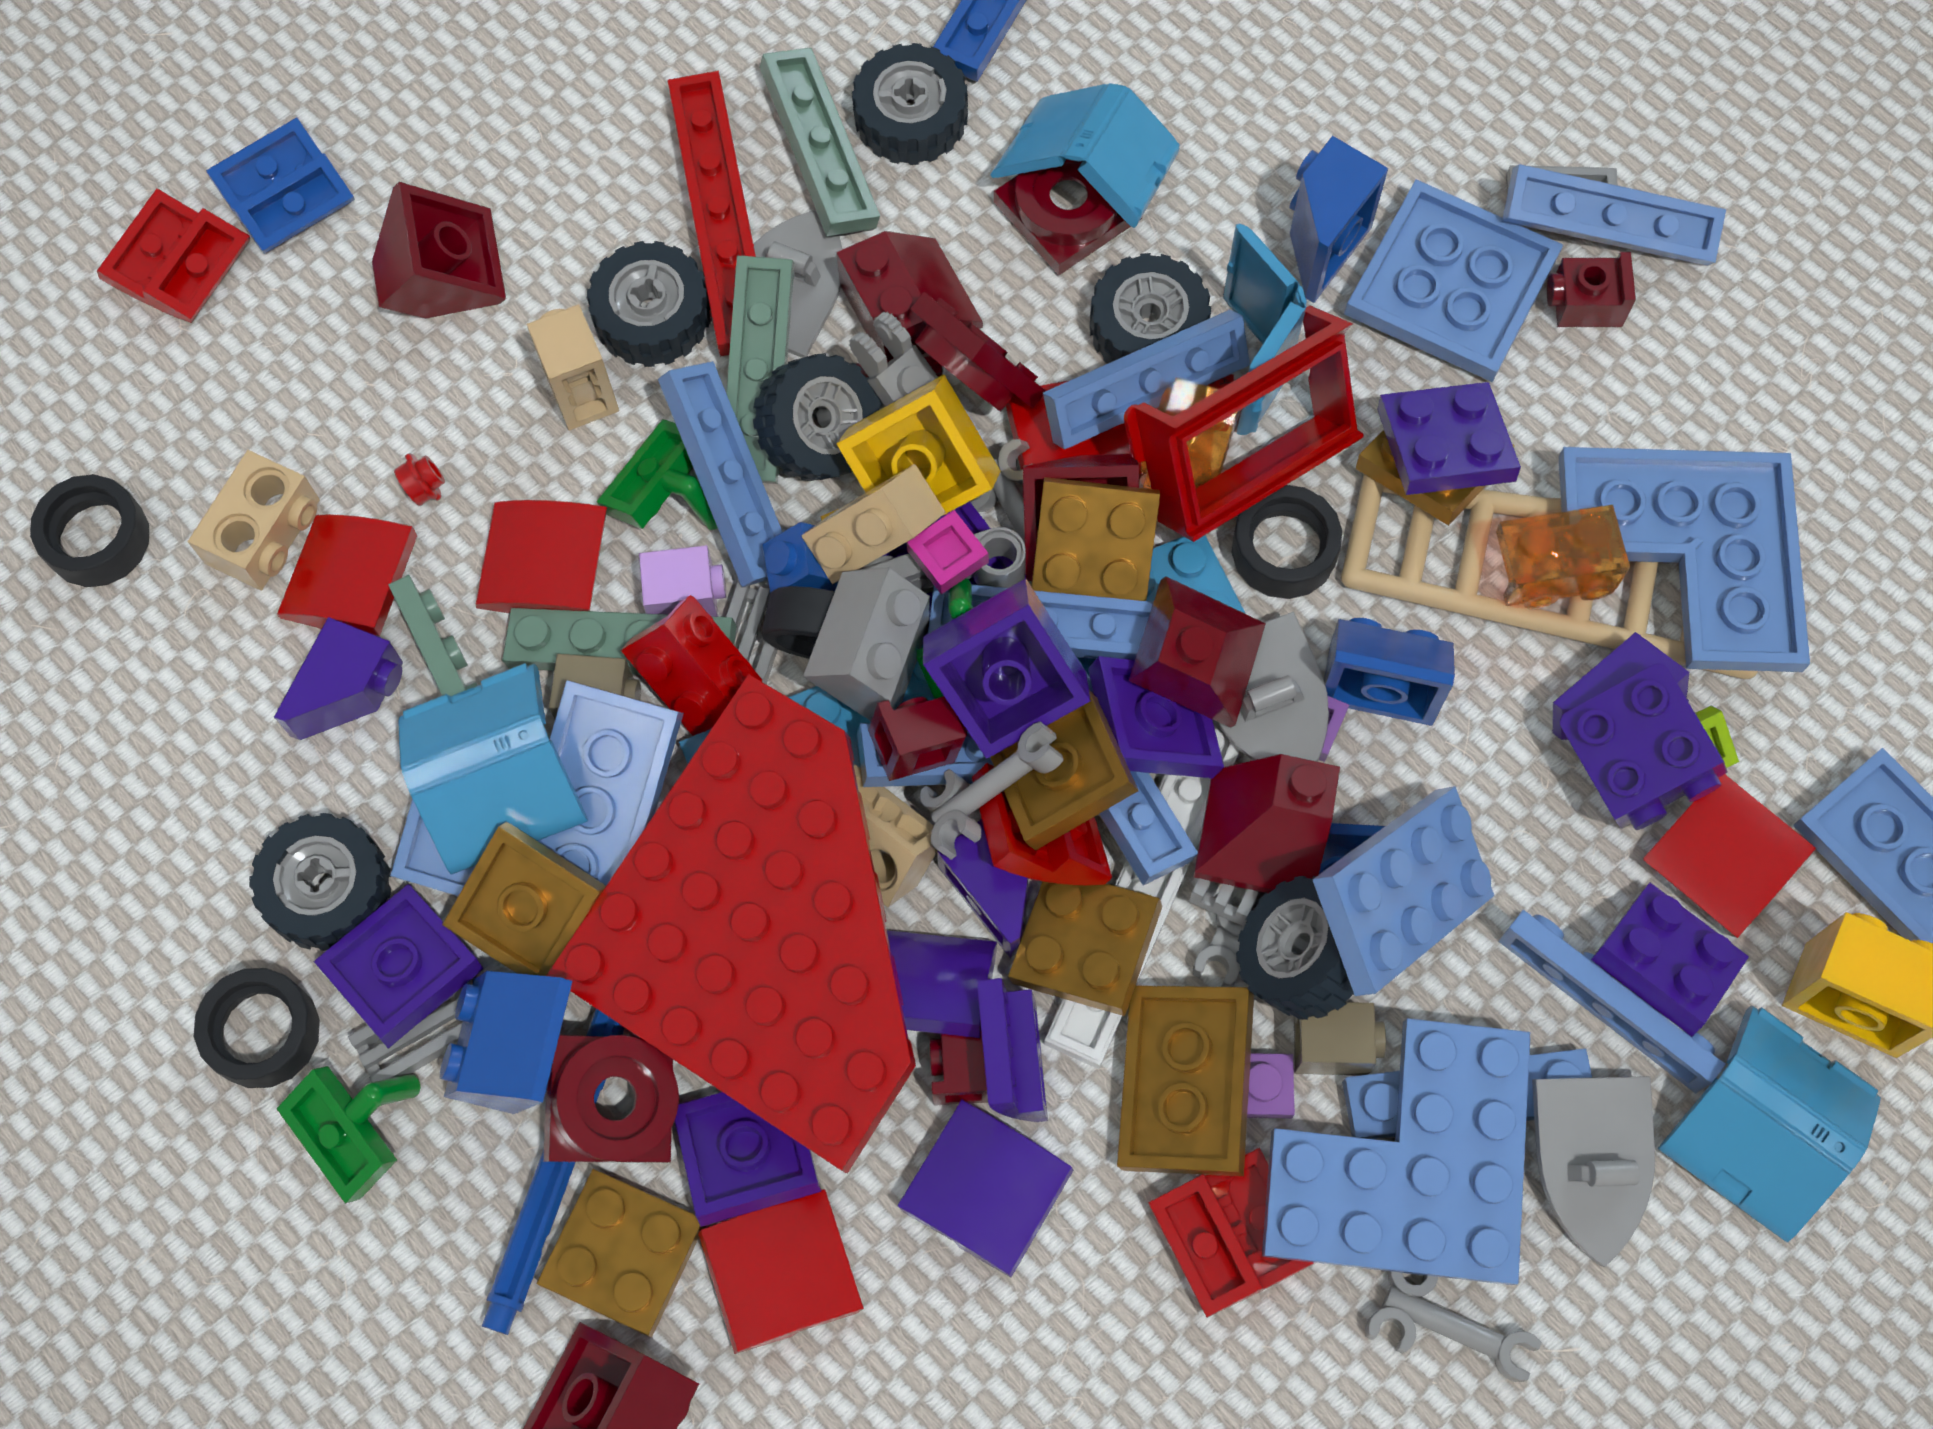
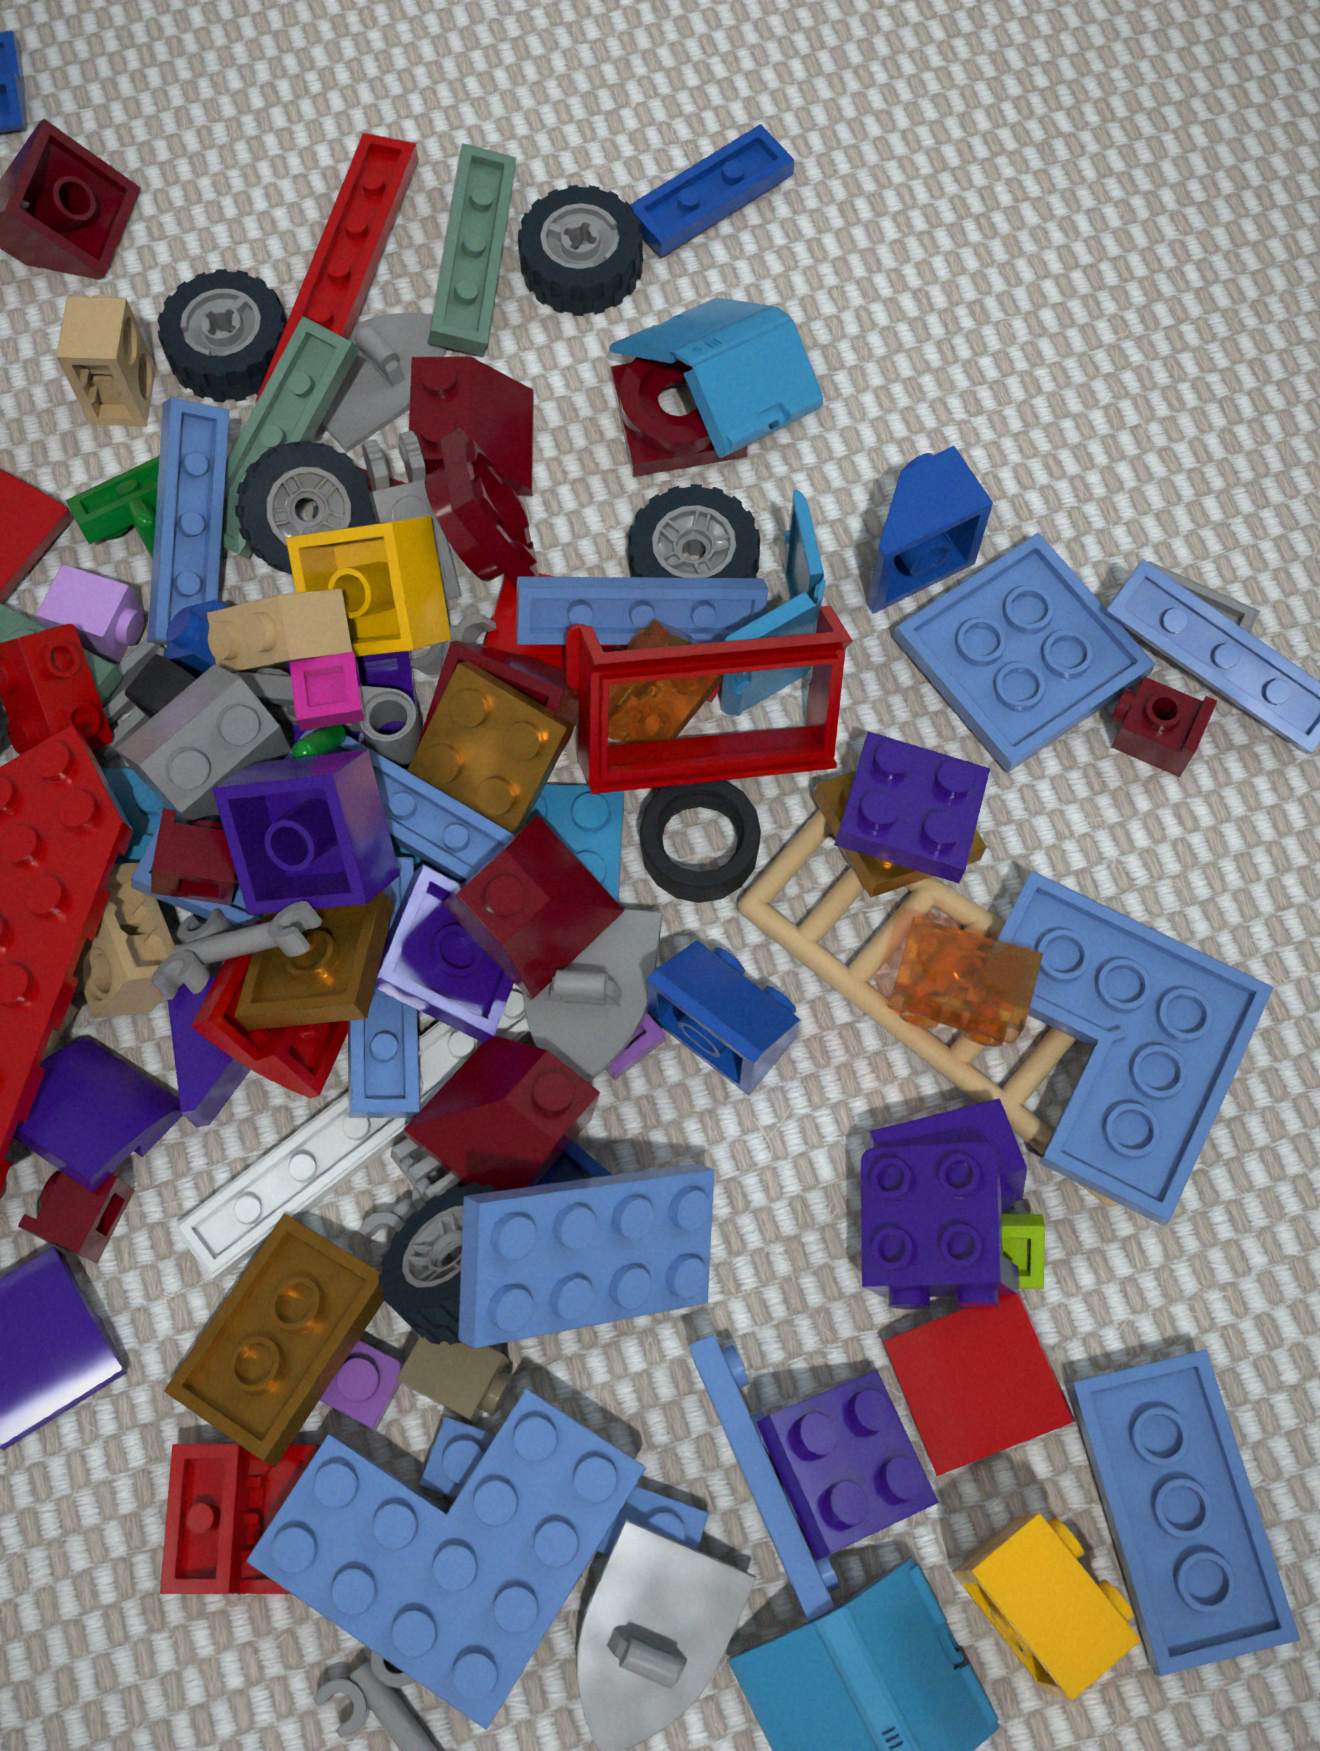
camera: 25 degrees right, 0 degrees up
(1012, 1051) = (117, 1222): dark purple slope -> none
(1086, 944) = (264, 1151): pearl gold plate -> none

